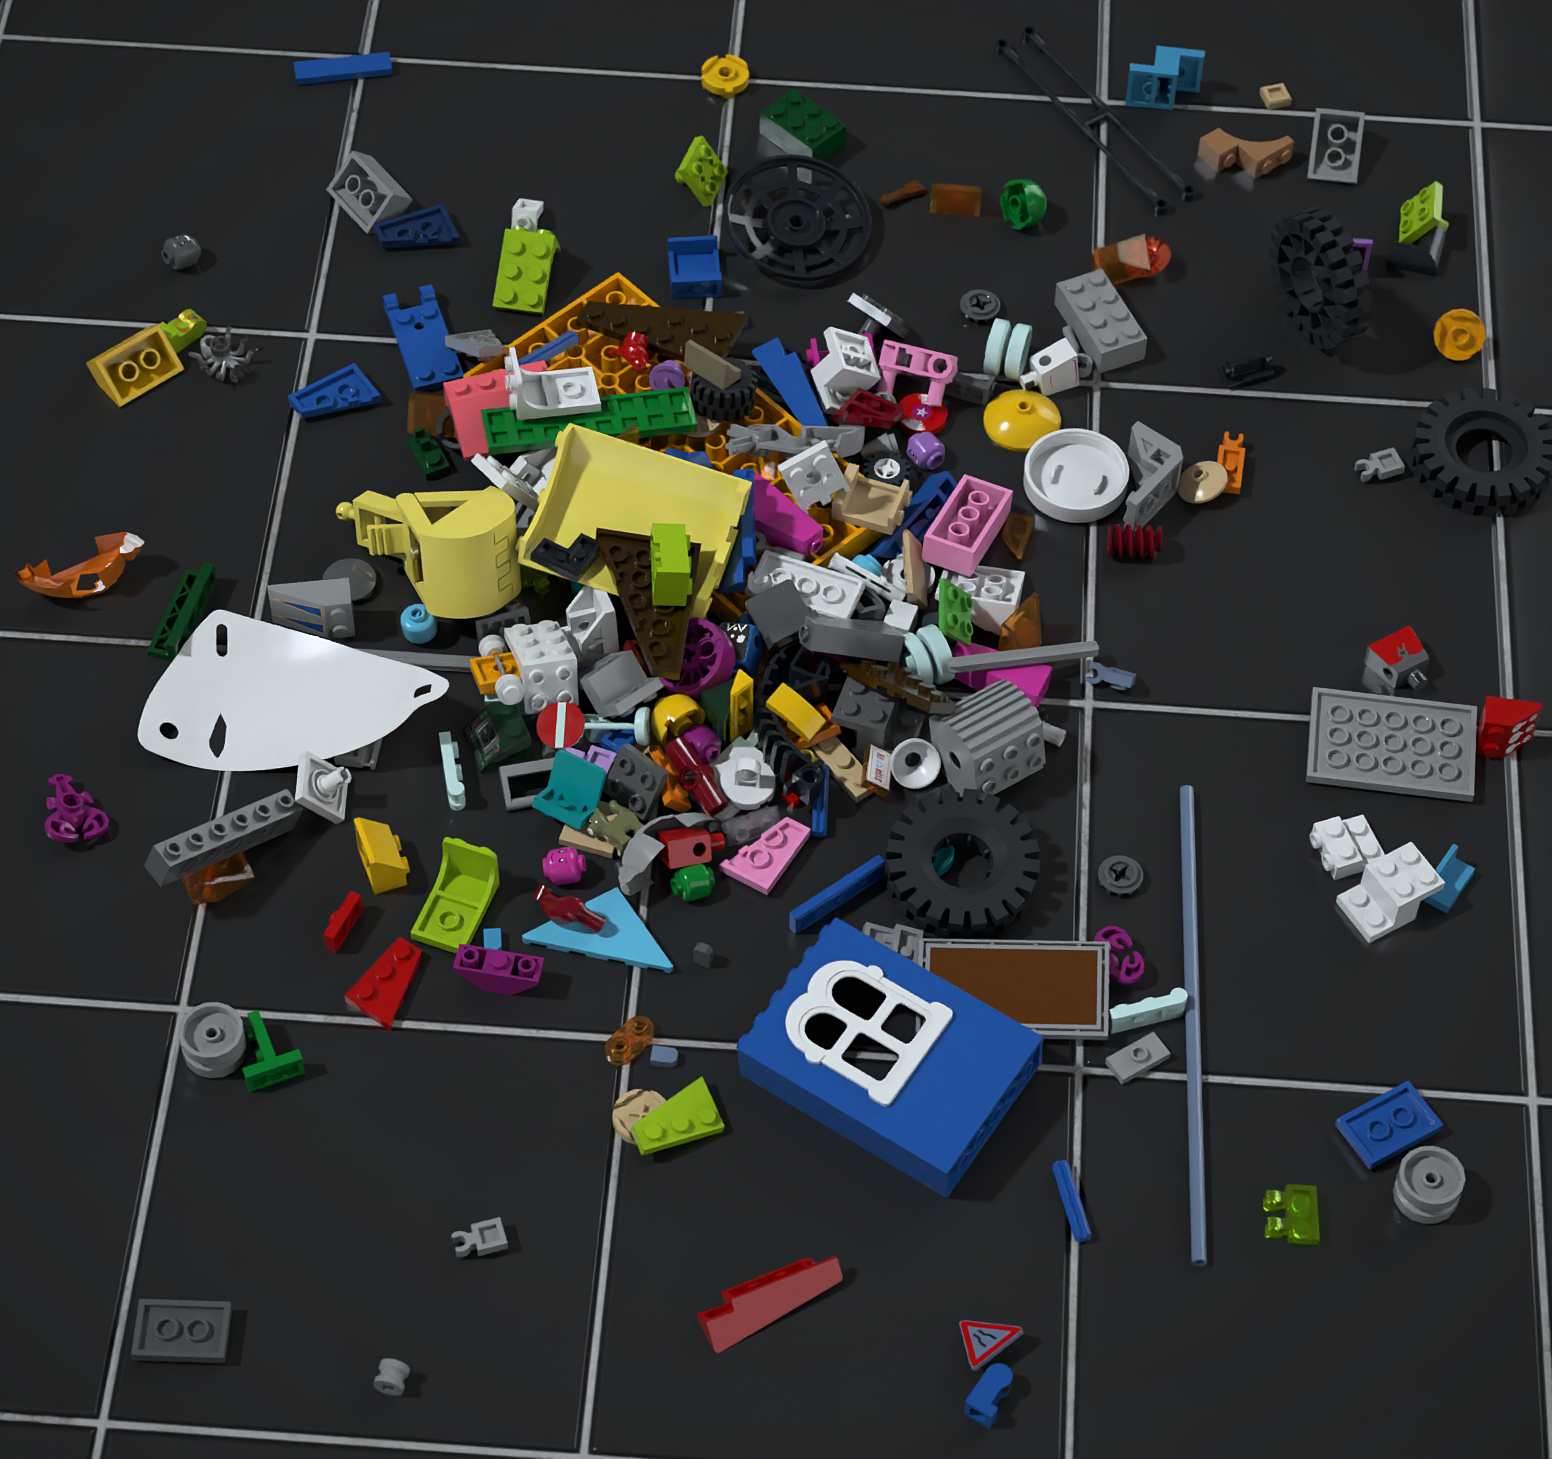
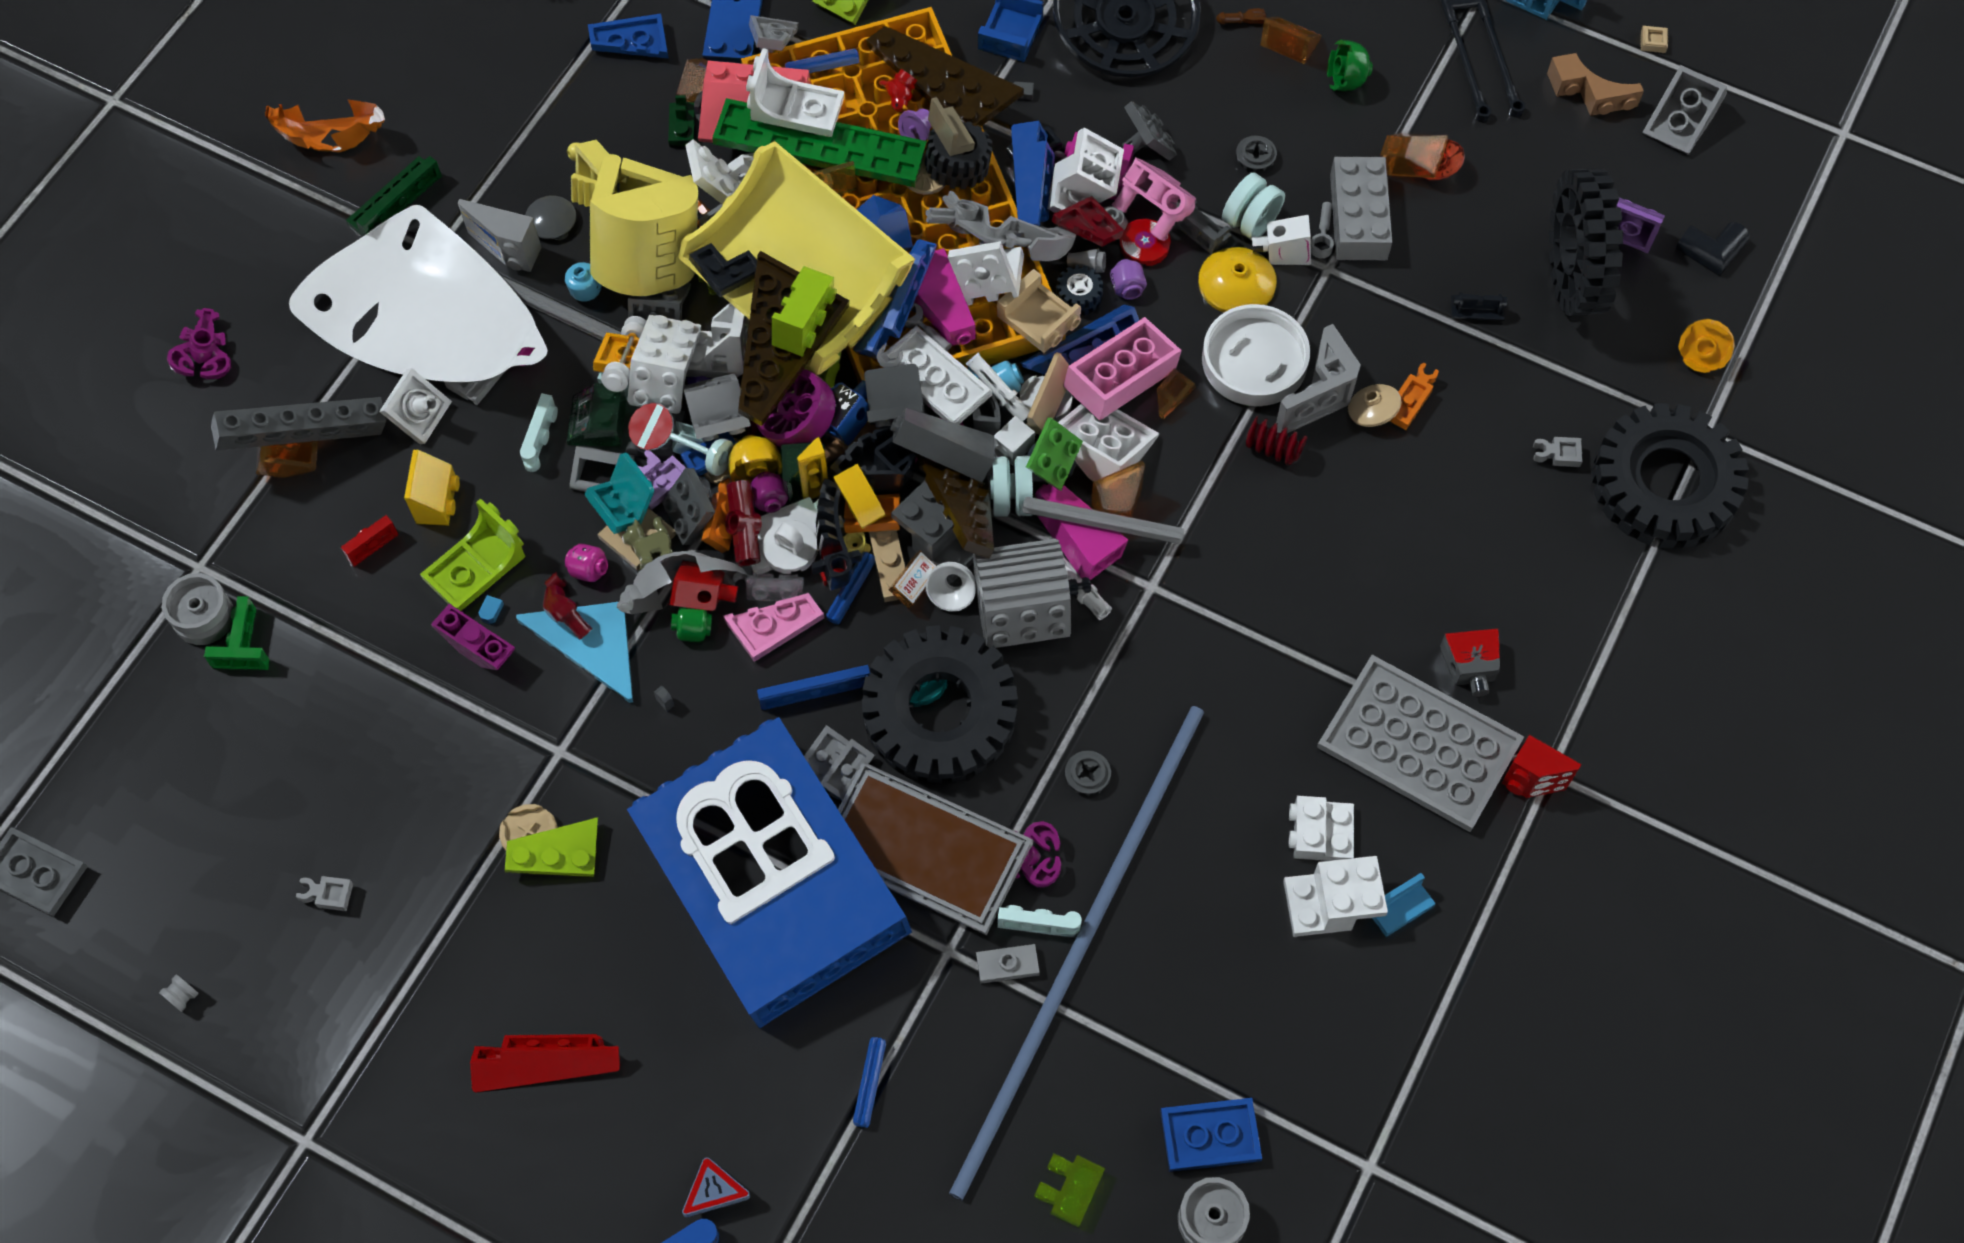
camera: 25 degrees right, 10 degrees up
(385, 983) = (376, 613): red wing -> none
(632, 1040) = (558, 756): clear orange plate -> none
(663, 1056) = (579, 782): sand blue piece -> none
(1118, 678) = (1187, 570): sand blue plate -> none
(1422, 214) = (1734, 209): lime plate -> none

